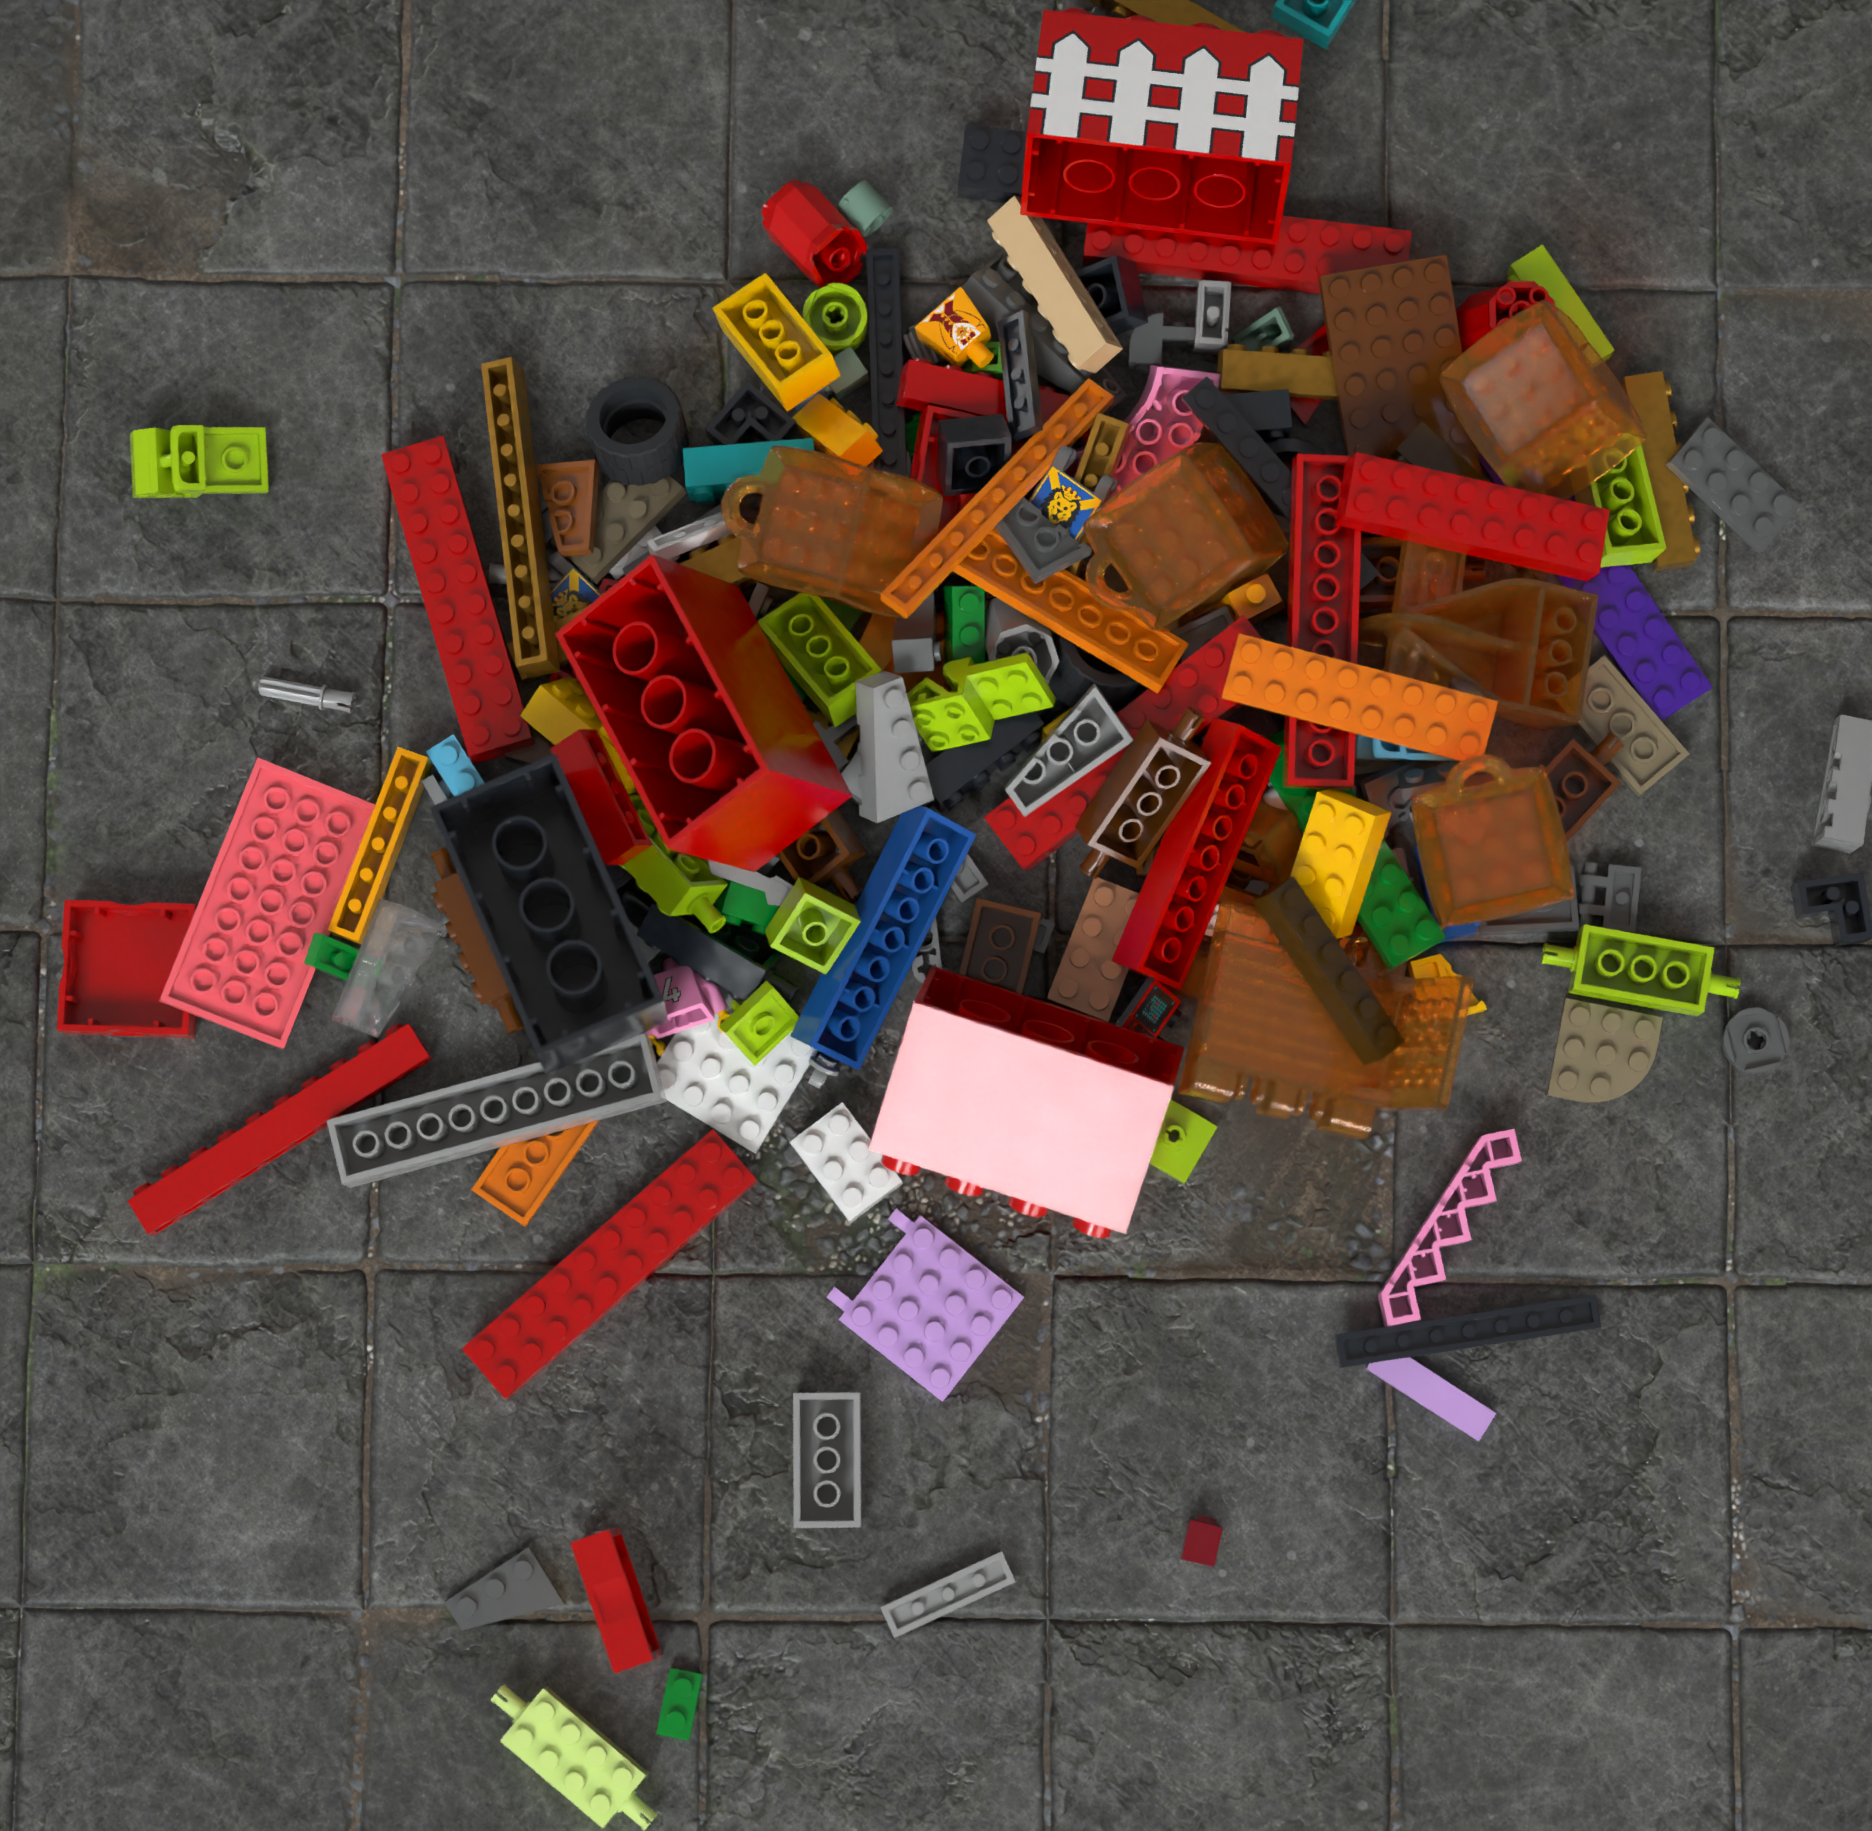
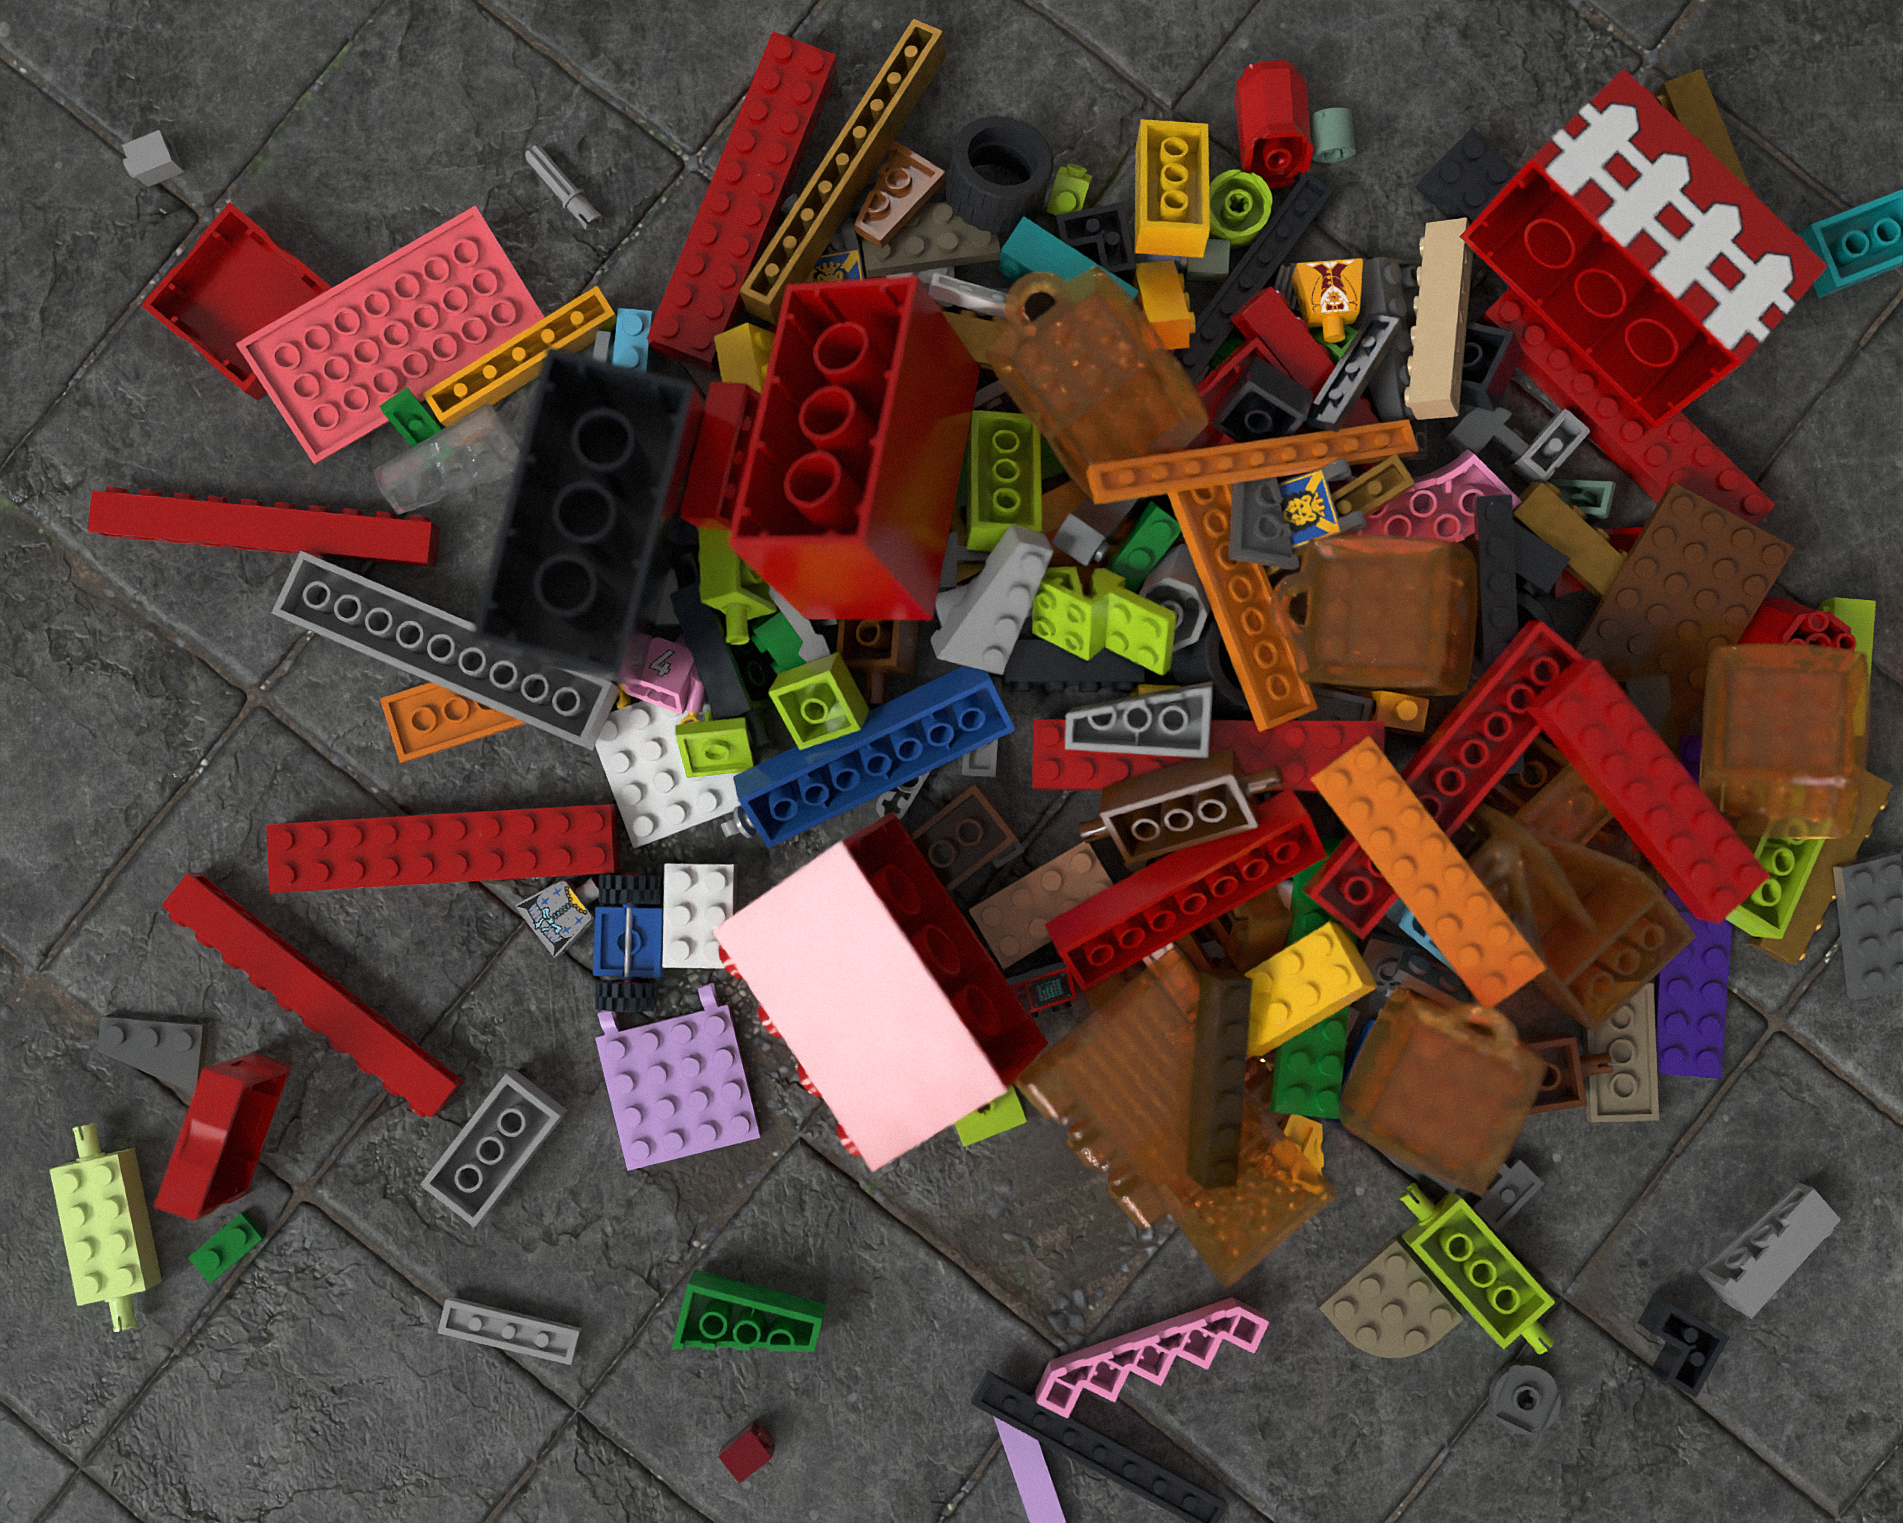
camera: 30 degrees right, 5 degrees up
(595, 1455) = (312, 994): none -> red brick
(698, 401) = (1069, 190): none -> lime bracket
(738, 1244) = (560, 913): none -> light grey torso
(807, 1224) = (628, 942): none -> plate
(1119, 1439) = (745, 1317): none -> green wedge

